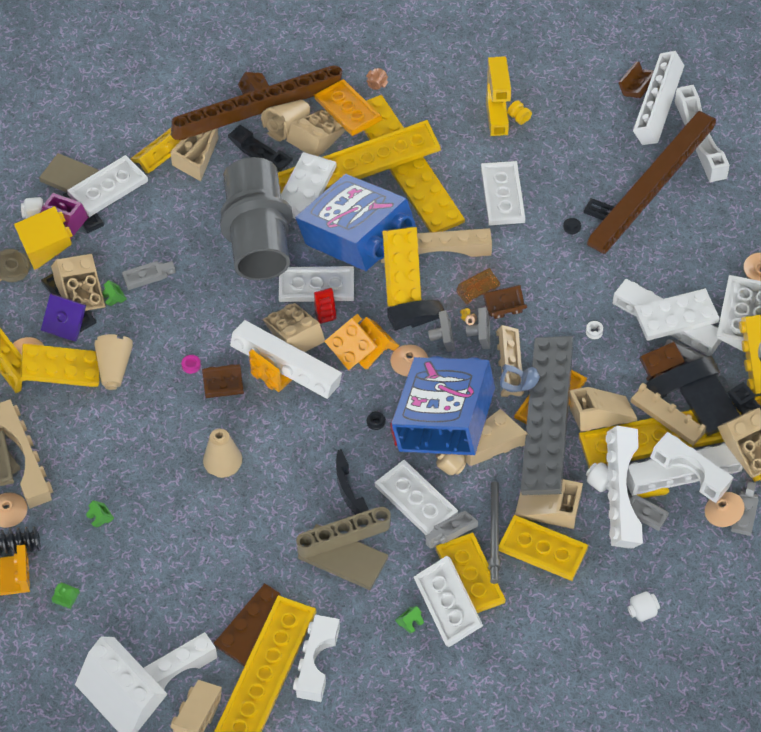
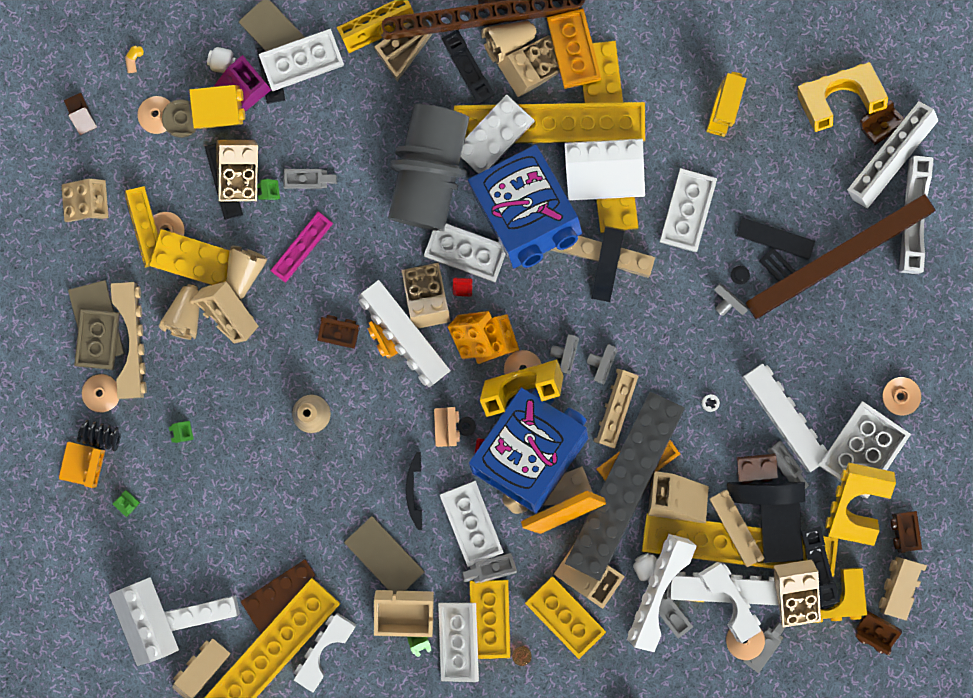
camera: 20 degrees right, 30 degrees up
(63, 317) = (211, 204): dark purple plate -> none
(67, 415) = (182, 315): none -> tan cone
(109, 392) = (226, 310): none -> tan wedge
(161, 329) = (301, 247): none -> dark pink tile
(191, 364) = (316, 297): dark pink tile -> none
(337, 539) = (381, 539): dark tan beam -> none
(357, 423) = (445, 427): none -> light nougat bracket
(377, 78) = (617, 20): nougat gear -> none
(383, 590) = (403, 613): none -> tan piece
(401, 266) = (549, 277): yellow plate -> none
(414, 313) = (548, 322): black slope -> none
(417, 173) = (605, 169): none -> white slope
(429, 347) = (498, 390): none -> yellow arch
(450, 248) = (607, 264): none -> black slope
(466, 316) = (597, 346): arm -> none
(477, 285) = (619, 314): clear orange hinge -> none
(494, 562) = (513, 621): dark grey bar -> none
(499, 446) = (563, 512): none -> light orange tile
(504, 301) = (637, 342): reddish brown bracket -> none
(516, 597) = (521, 656): none -> clear orange tile
(517, 111) = (745, 117): yellow wheel -> none
(529, 378) = (623, 442): sand blue piece -> none
(572, 245) = (728, 301): none -> light grey tile
(589, 190) = (775, 238): none -> black tile
(607, 56) = (858, 79): none -> yellow arch
(676, 314) = (792, 425): white plate -> none

